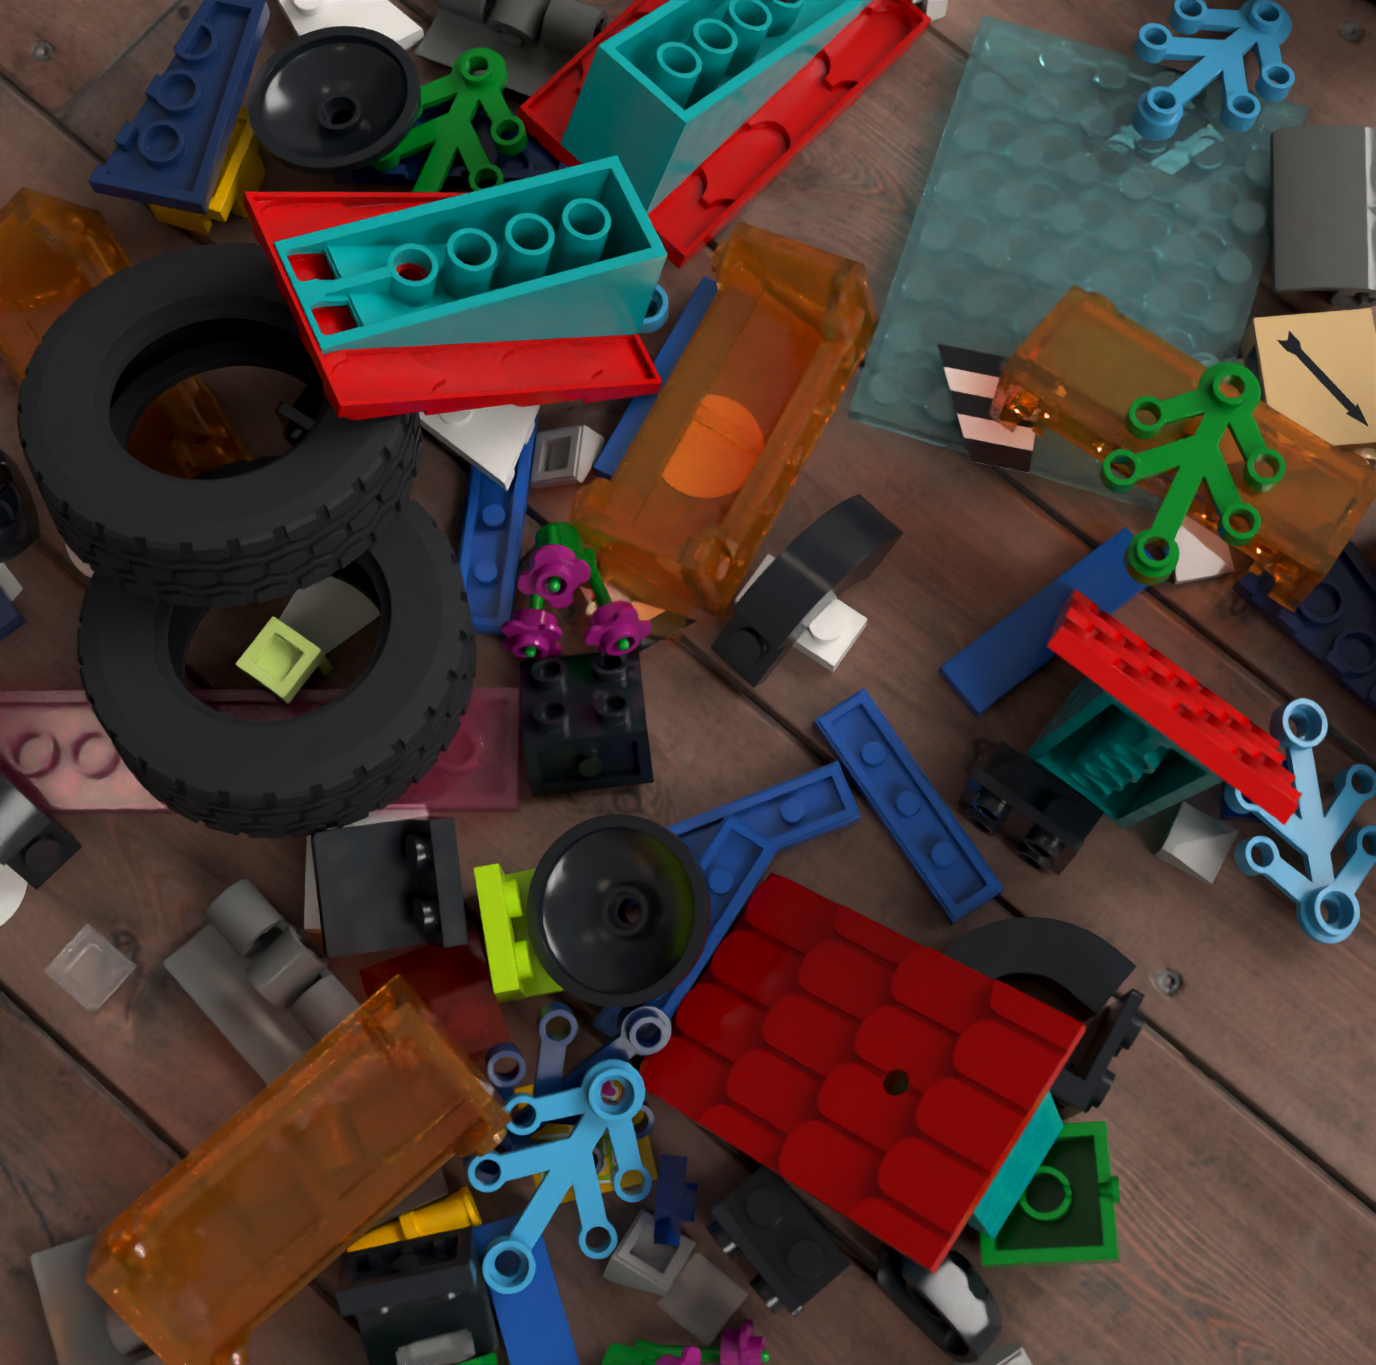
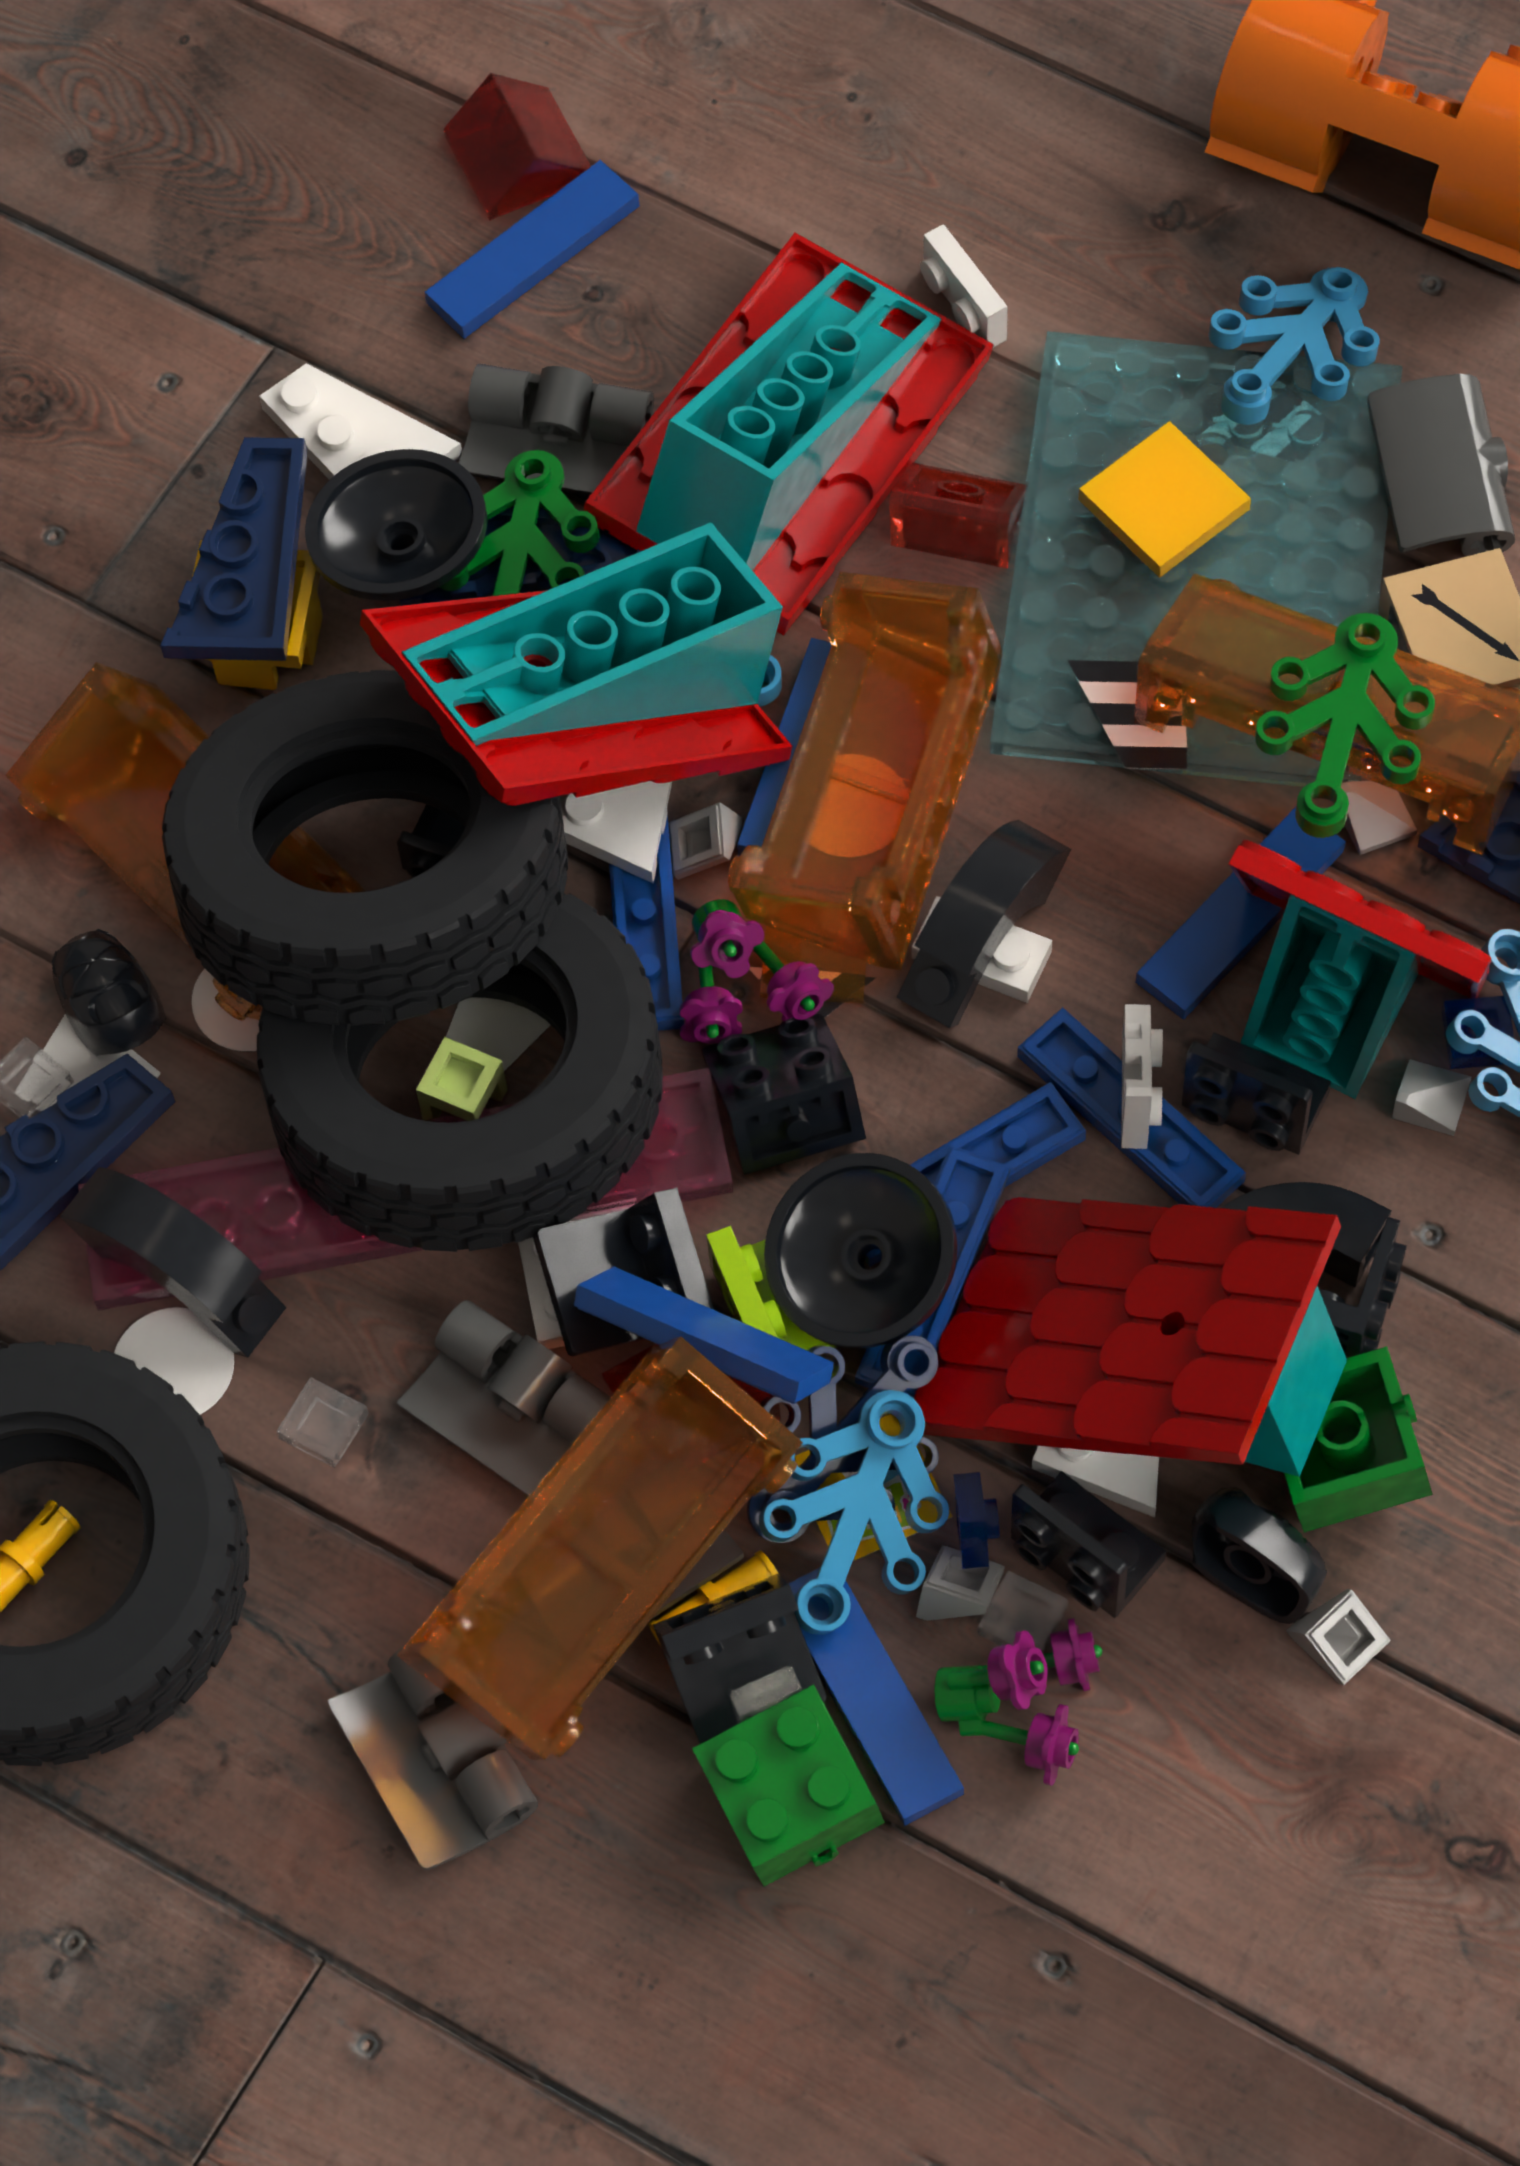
camera: 10 degrees left, 10 degrees down
(447, 978) = (724, 1341): none -> blue tile
(863, 178) = (956, 514): none -> clear red slope
(927, 754) = (1140, 1052): none -> white wing
(1060, 200) = (1164, 499): none -> yellow tile

